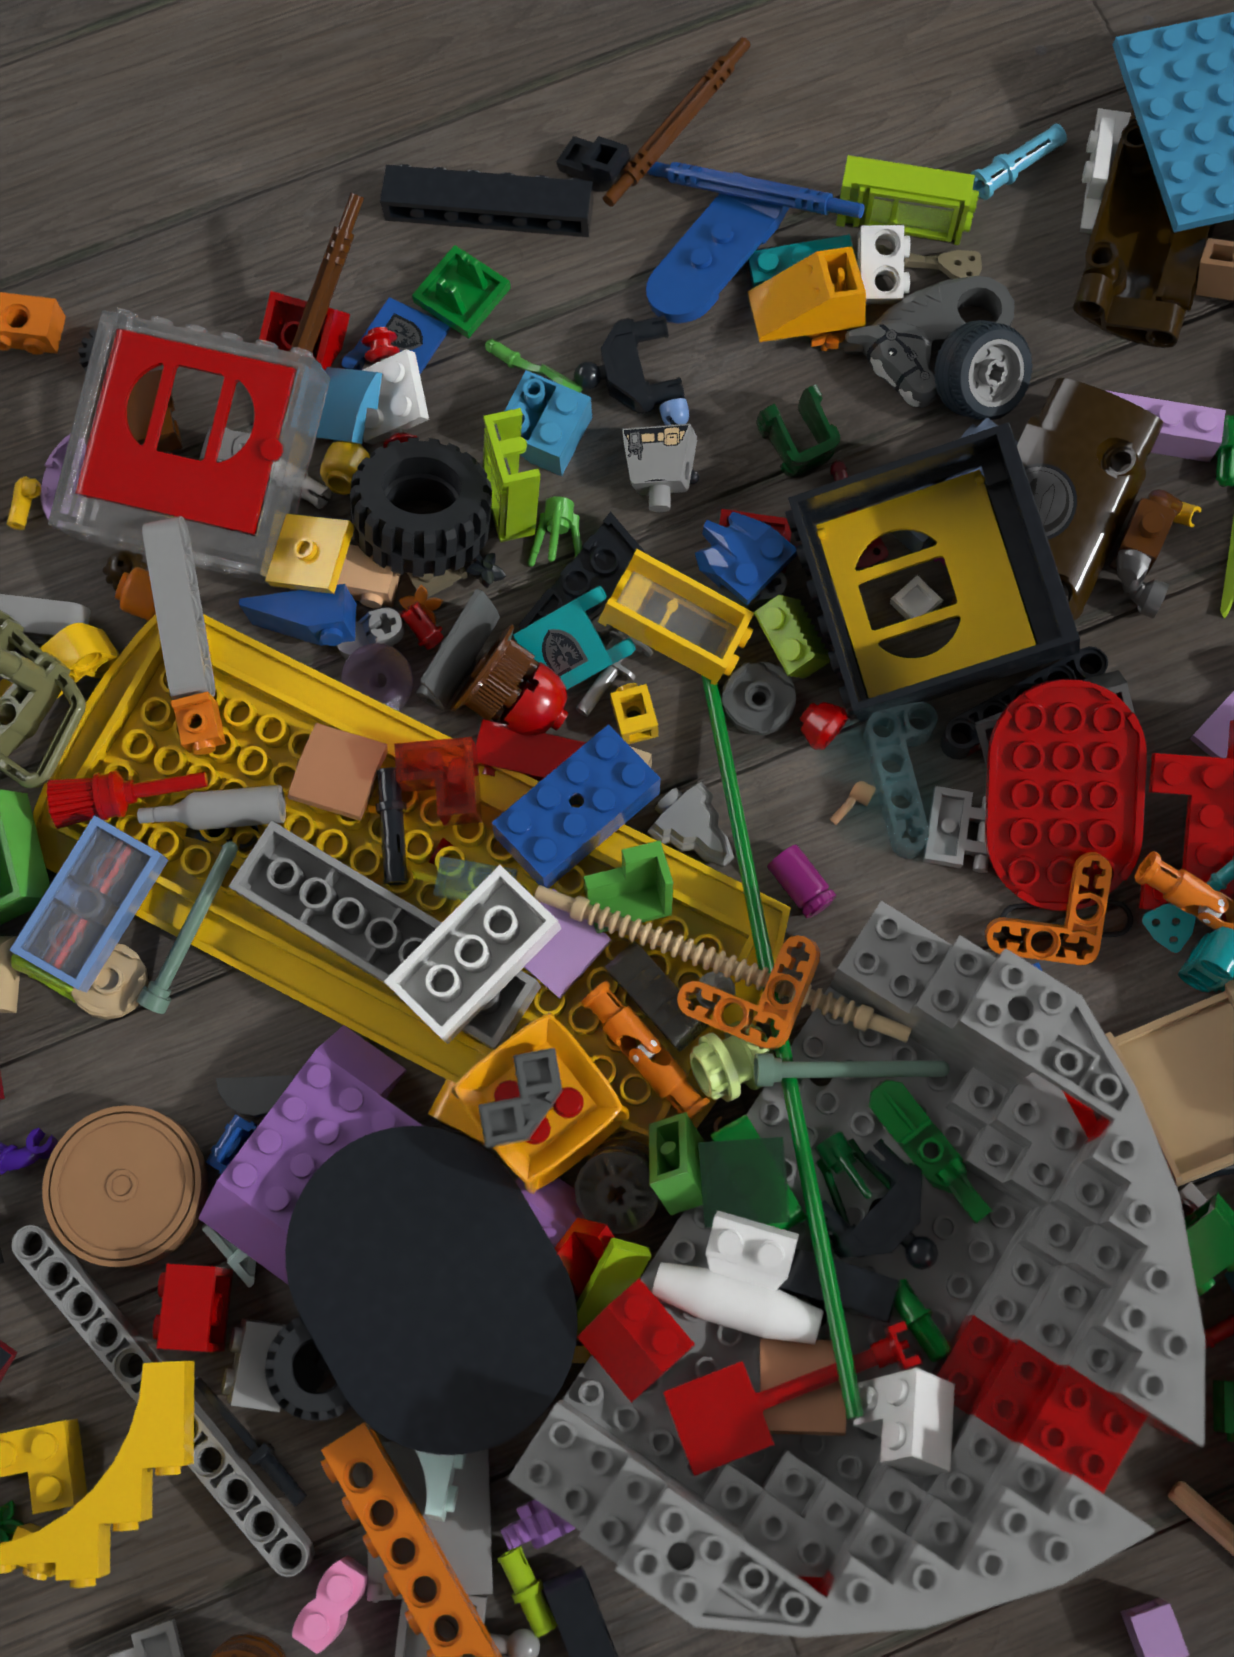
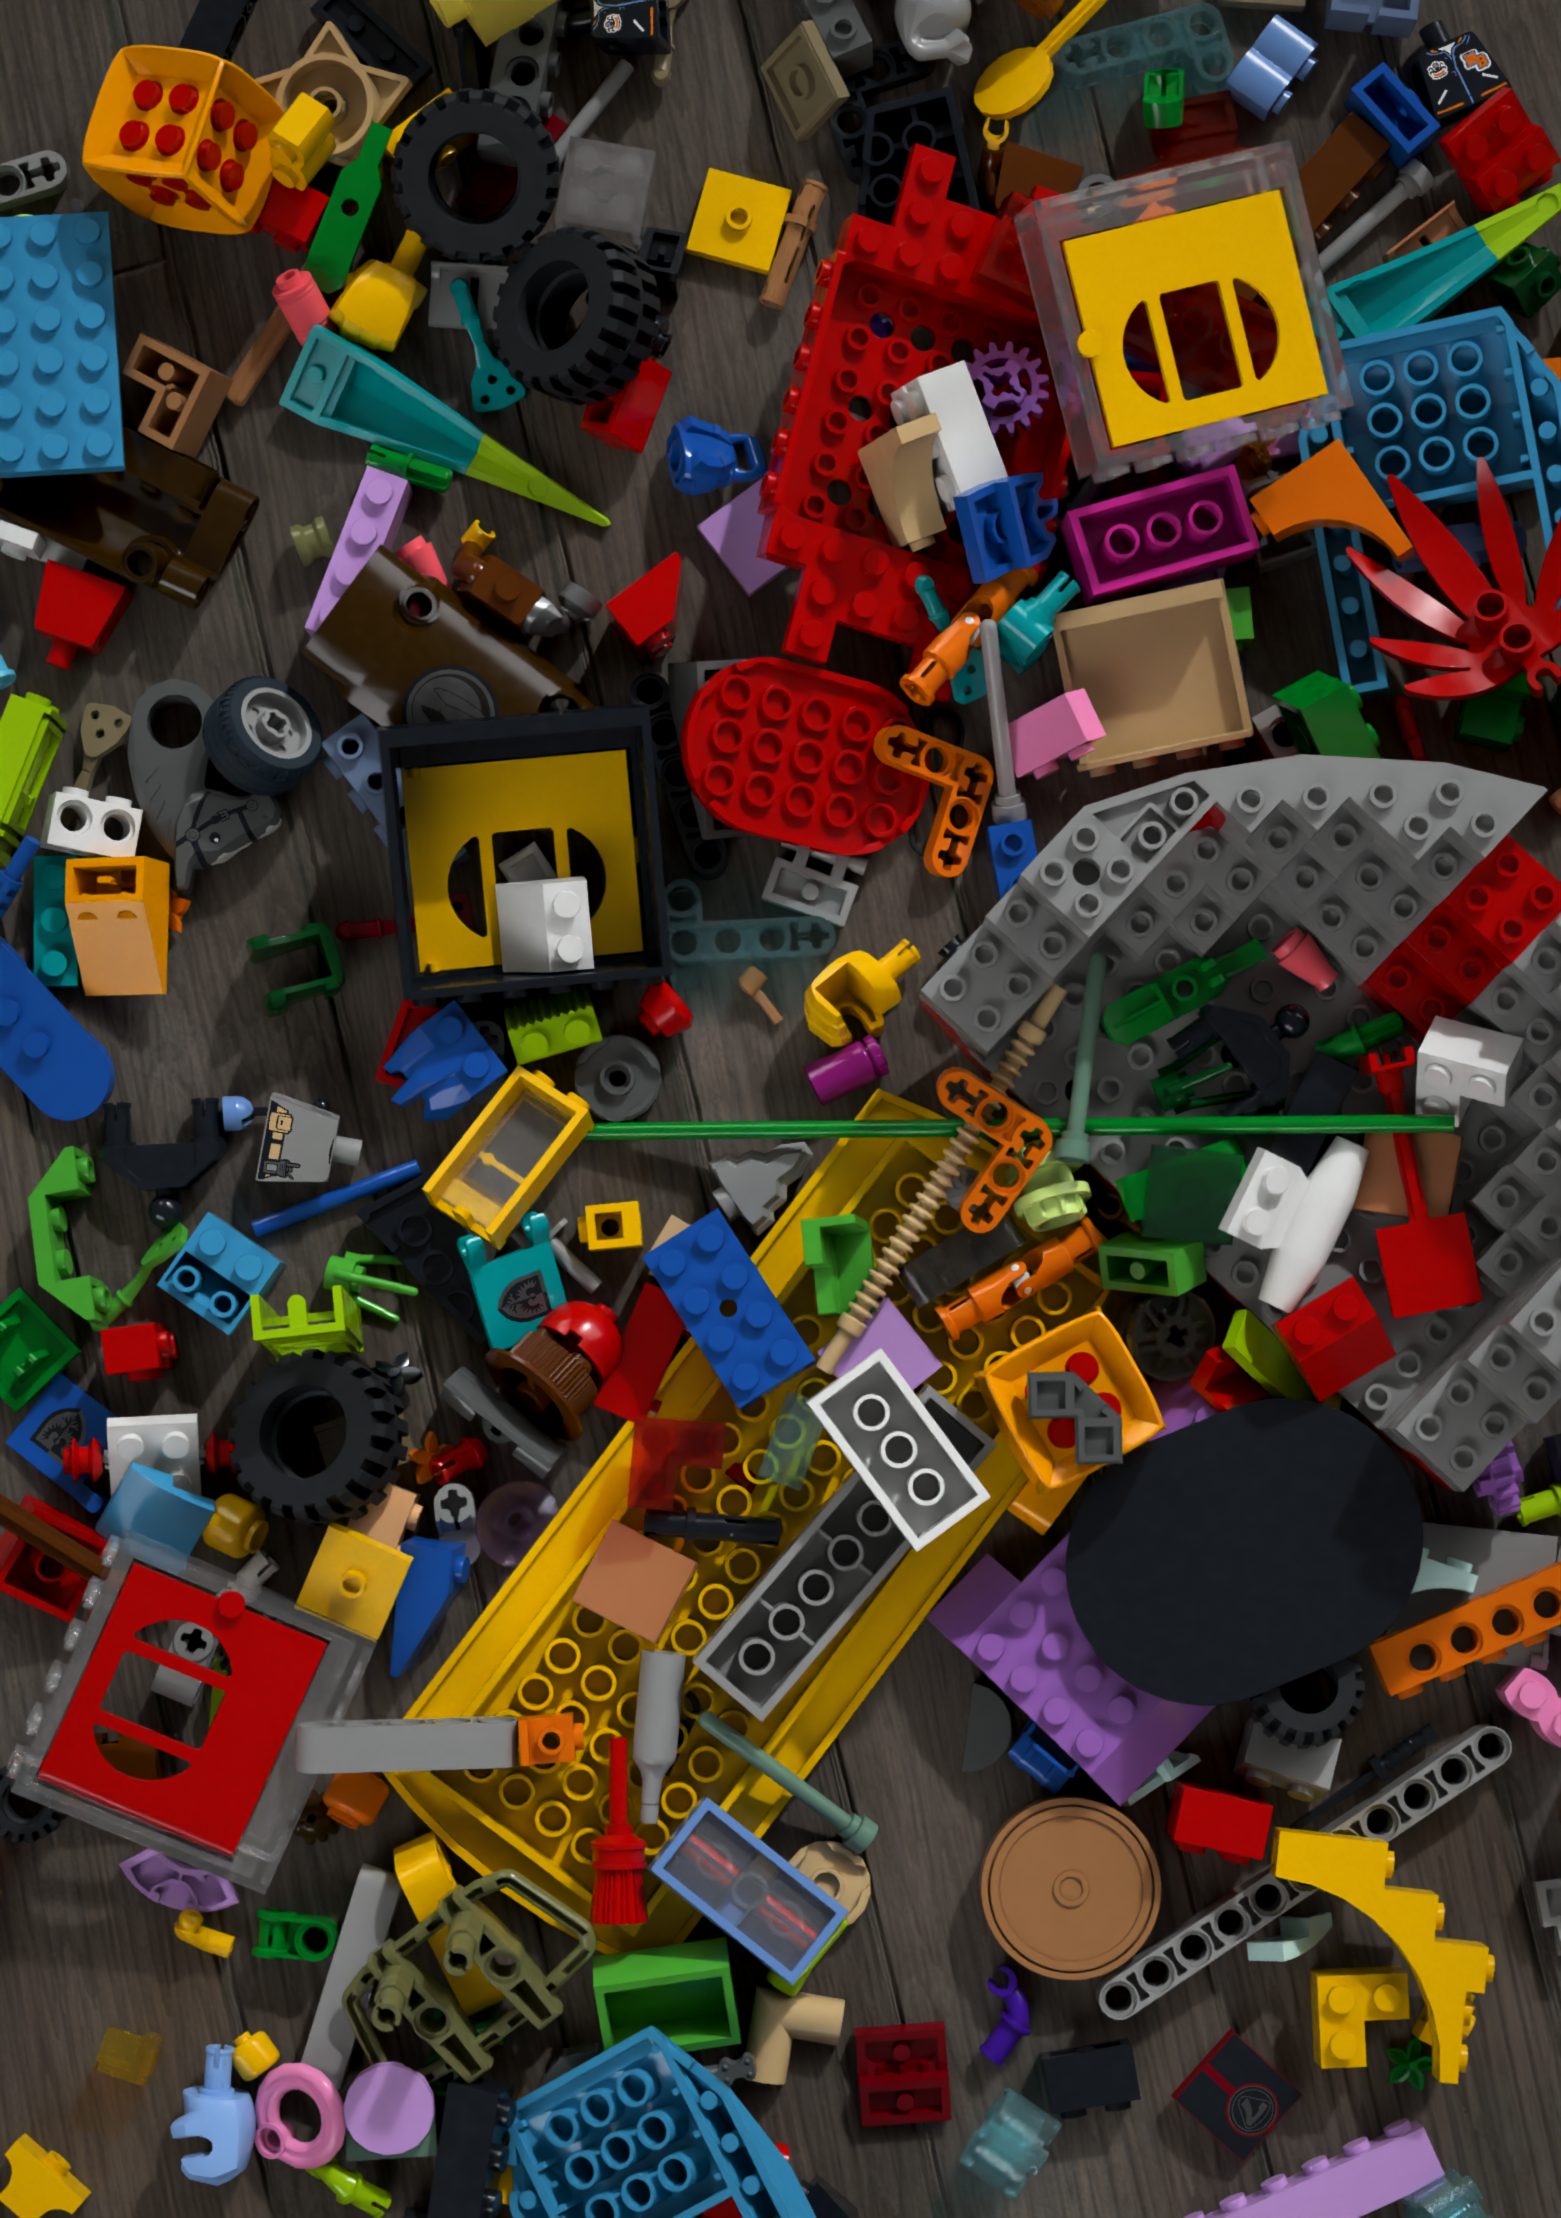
camera: 85 degrees left, 10 degrees up
(27, 563) = (285, 1935): none -> green piece
(99, 1399) = (1296, 1938): none -> light aqua slope
(471, 368) = (139, 1351): none -> red brick
(599, 298) = (65, 1180): none -> bright green slope
(620, 500) = (336, 1198): none -> blue bar
(874, 873) = (856, 987): none -> yellow piece
(875, 613) = (544, 925): none -> white slope
(981, 1257) = (1304, 958): none -> coral cone
(1050, 229) = (77, 612): none -> red torso
(1134, 1004) = (1052, 733): none -> bright pink brick
(1140, 950) = (1008, 802): none -> light grey piece
(1151, 385) = (312, 541): none -> olive wheel
(1158, 472) = (423, 559): none -> coral cone
(1163, 652) = (649, 610): none -> red slope

